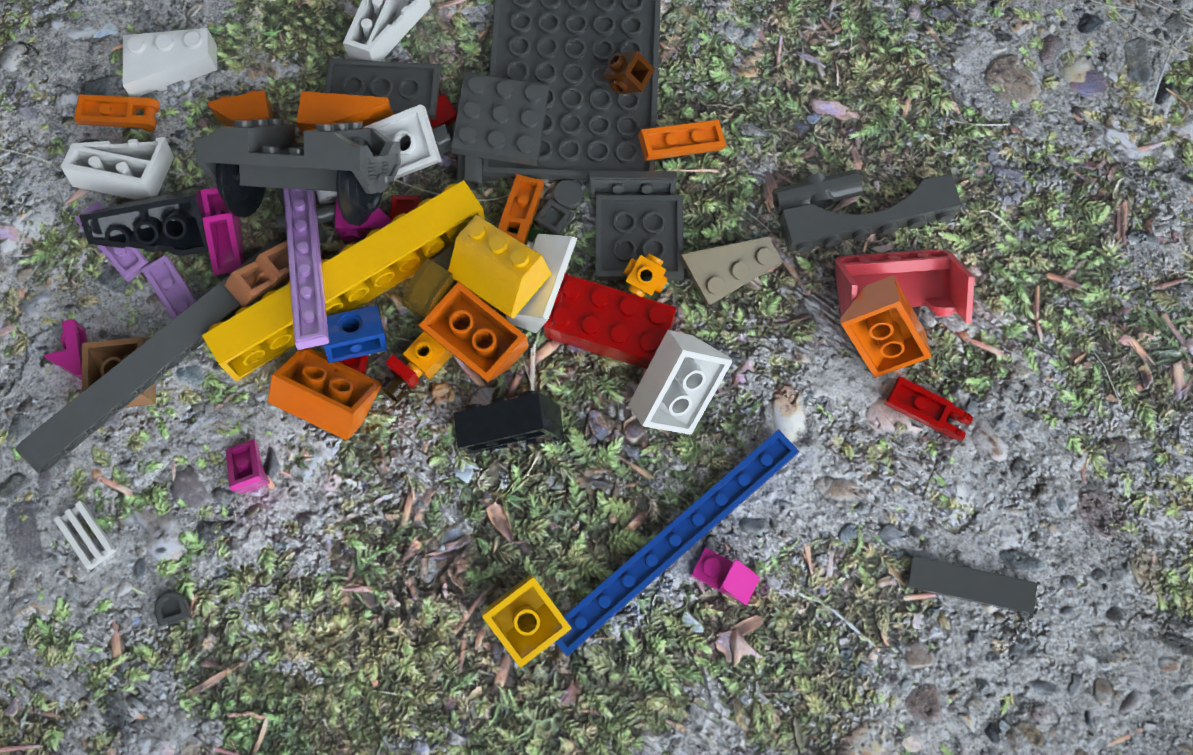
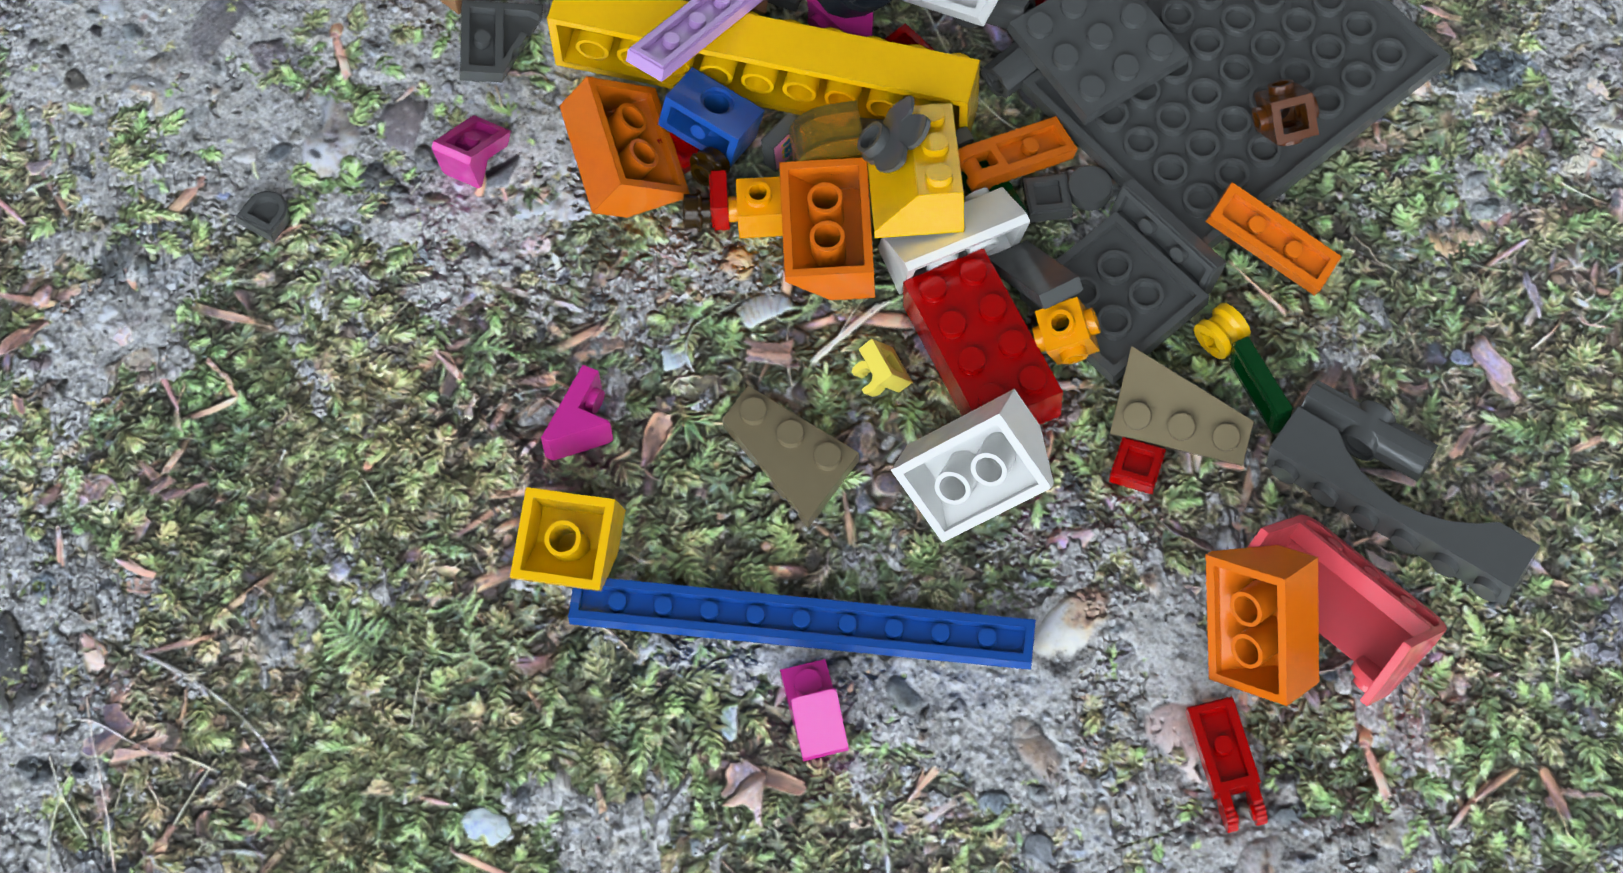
camera: 50 degrees right, 10 degrees down
(70, 515) = (249, 70): white tile -> none
(189, 399) = (494, 37): none -> dark grey wing
(376, 359) = (706, 161): none -> dark brown plate
(399, 312) = (777, 144): none -> dark grey tile
(459, 558) = (574, 424): none -> dark pink slope
(471, 258) = (888, 142): none -> dark grey plate
(507, 422) = (769, 344): black wedge -> none
(573, 376) = (885, 369): none -> light yellow tile
(575, 462) = (792, 452): none -> dark tan wing
(603, 261) = (1036, 274): none -> dark grey tile
(705, 206) = (1221, 330): none -> yellow wheel
(736, 308) = (1137, 465): none -> red tile
(750, 216) = (1260, 385): none -> dark green tile

